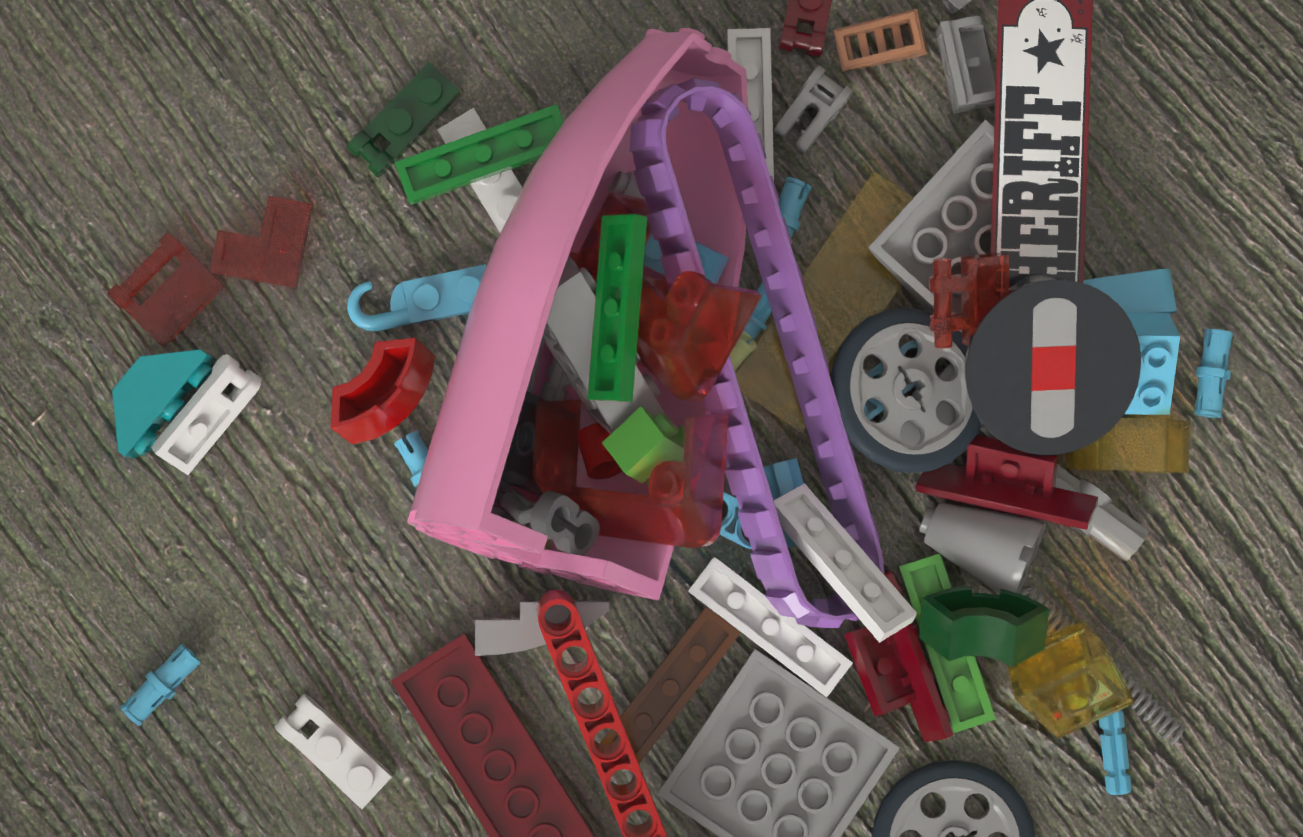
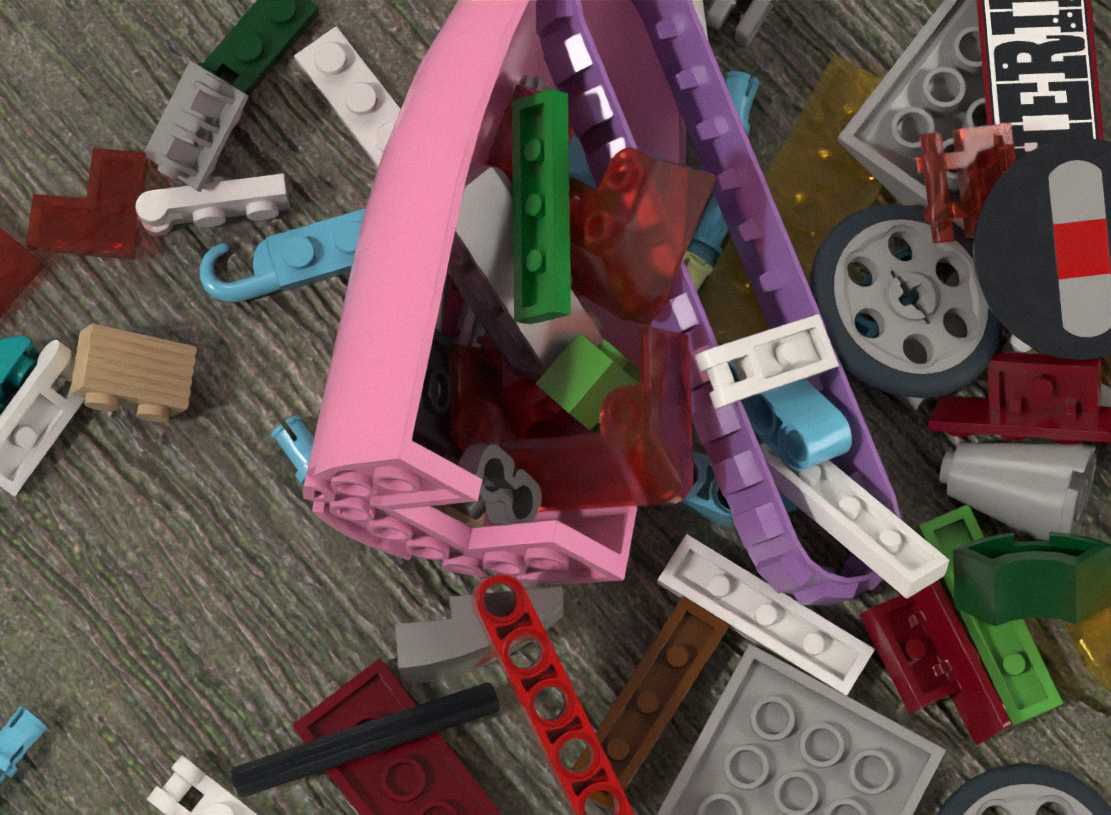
camera: 10 degrees left, 10 degrees down
(286, 386) = (132, 372): none -> tan brick
(350, 188) = (195, 126): none -> light grey hinge
(359, 251) = (256, 197): none -> white plate
(383, 391) = (253, 367): red brick -> none
(446, 699) = (364, 739): none -> black axle
(478, 155) = (344, 76): green plate -> none
(789, 442) = (767, 360): none -> white plate
(800, 469) = (798, 423): none -> medium azure beam

